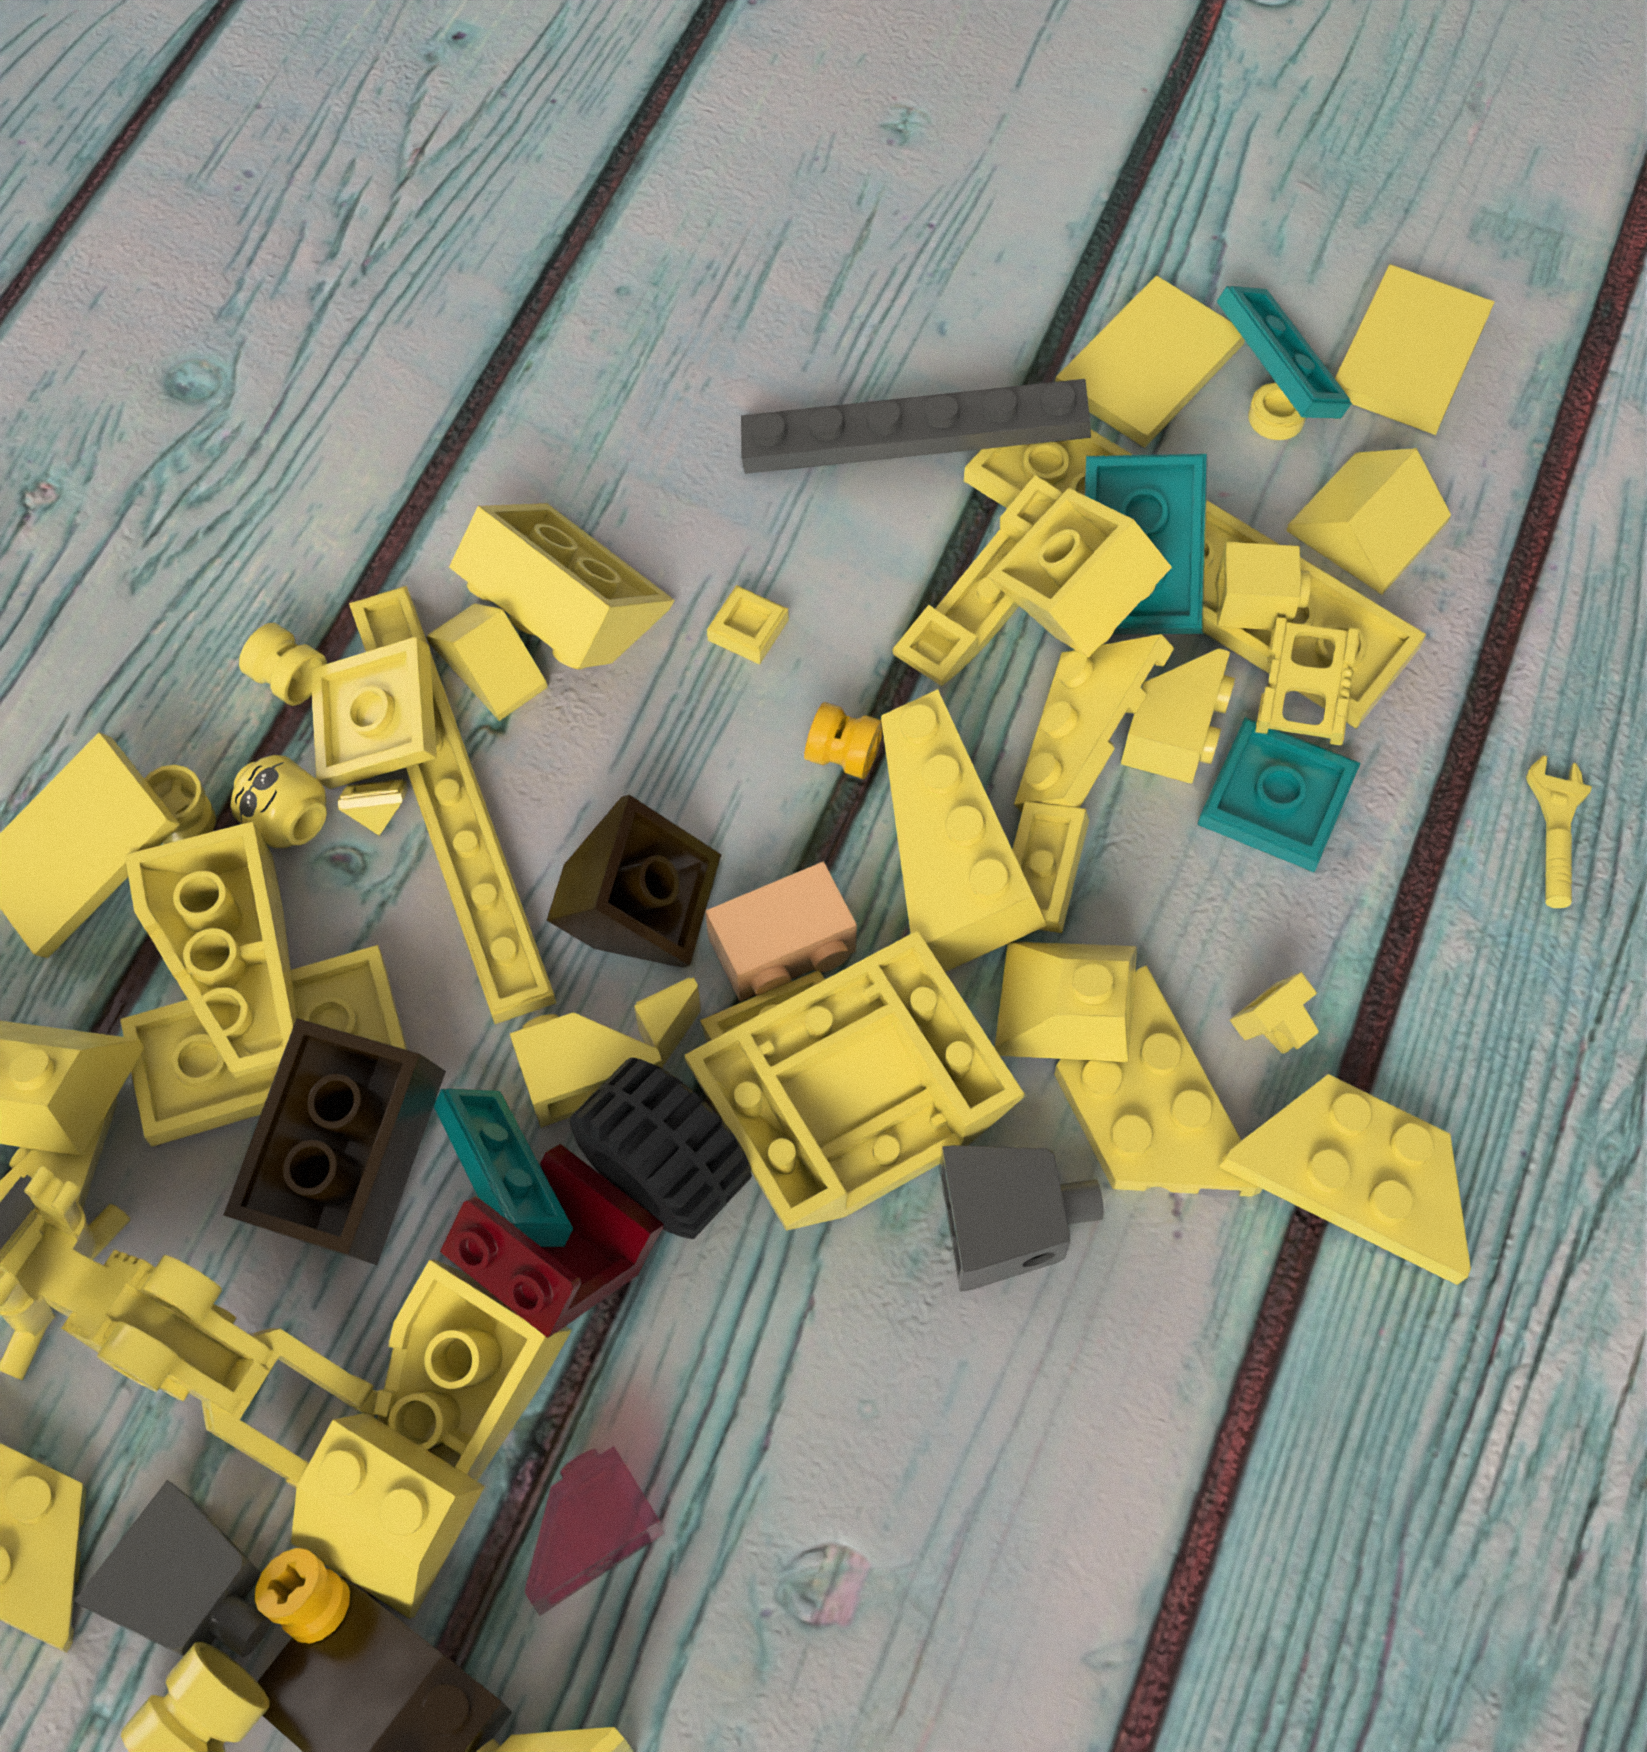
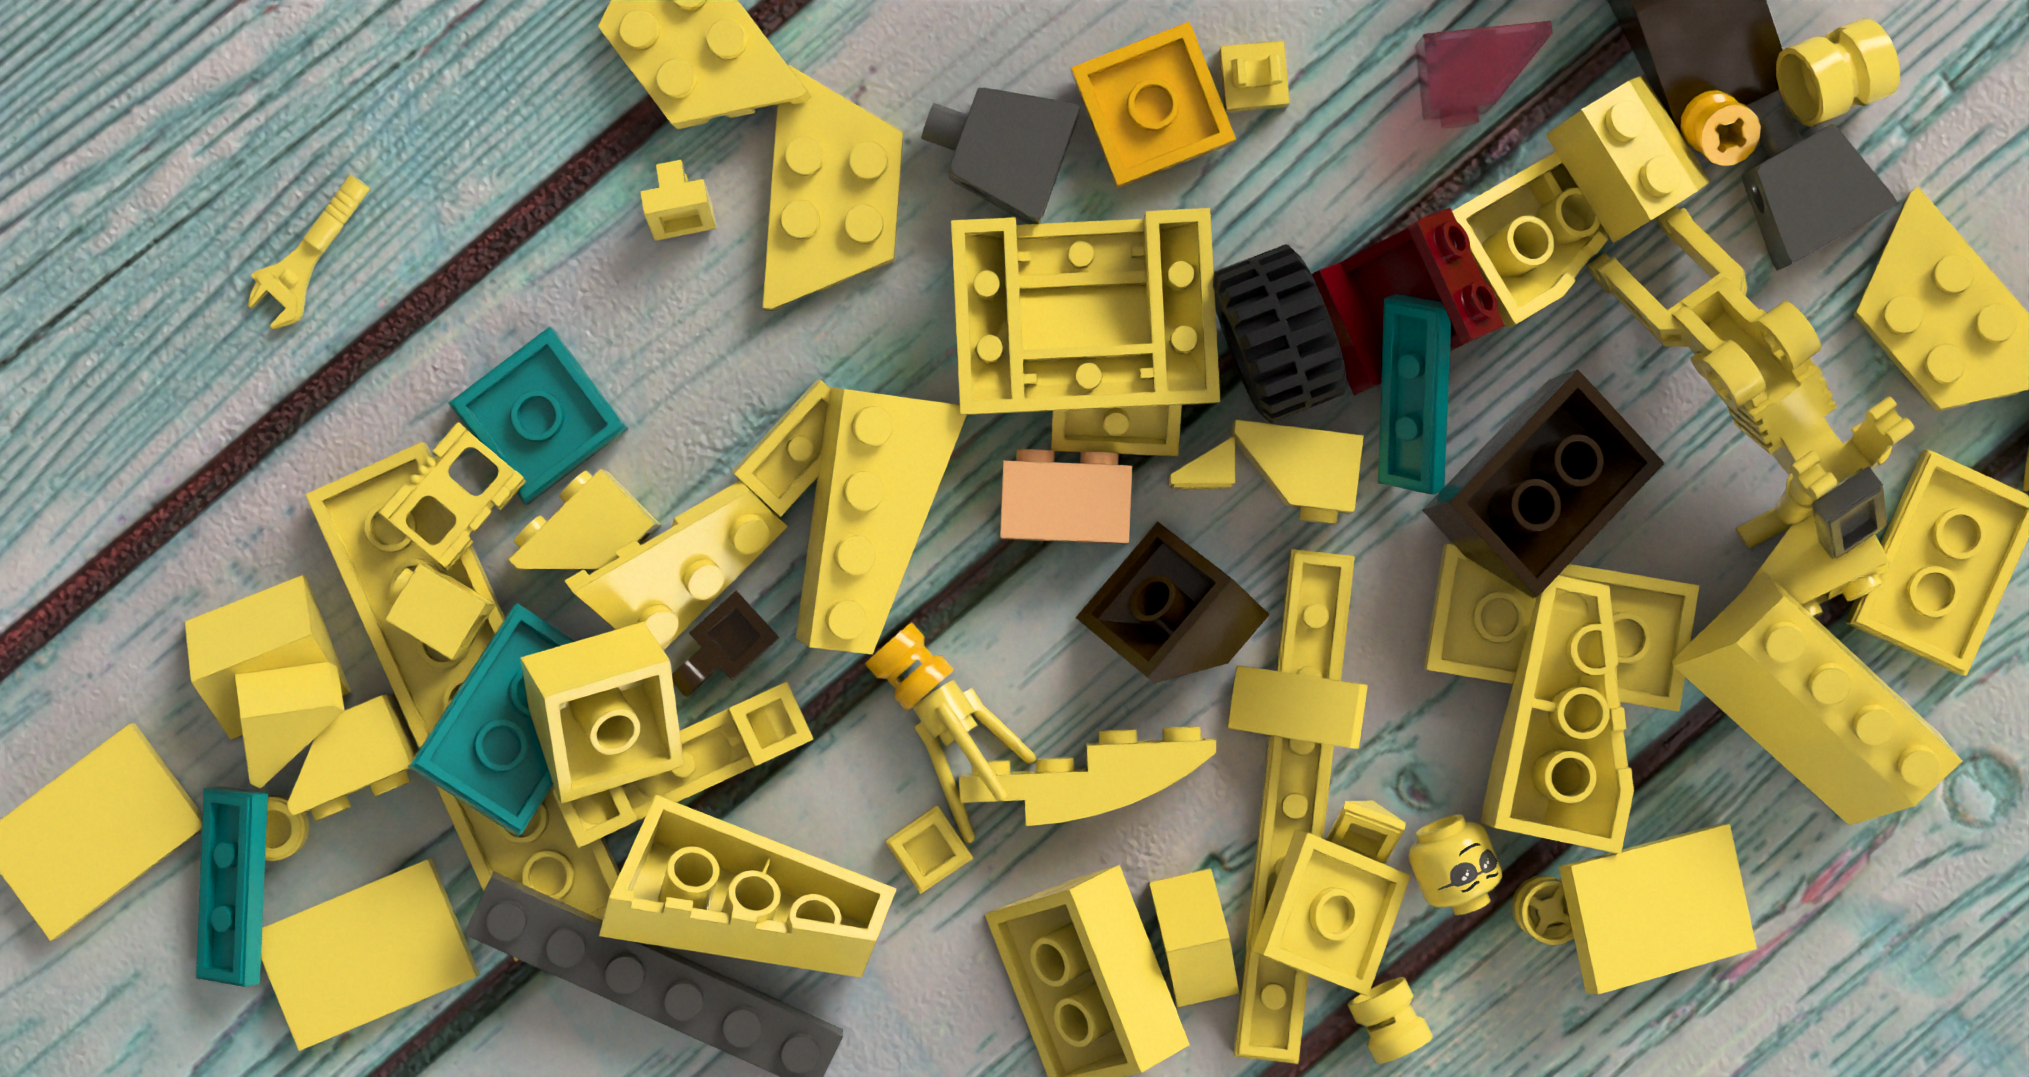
camera: 155 degrees left, 25 degrees up
(475, 856) = (1297, 706): none -> light yellow slope
(620, 734) = (1115, 775): none -> light yellow slope
(784, 718) = (948, 715): none -> light yellow plant
(810, 1411) = (1254, 76): none -> light yellow tile
(894, 1326) = (1153, 105): none -> yellow plate
(896, 500) = (742, 896): none -> light yellow wedge
(1009, 691) = (728, 639): none -> dark brown plate
(1066, 1001) = (851, 310): light yellow slope -> none
(1255, 472) = (355, 751): none -> light yellow slope
(1331, 465) = (284, 713): none -> light yellow slope

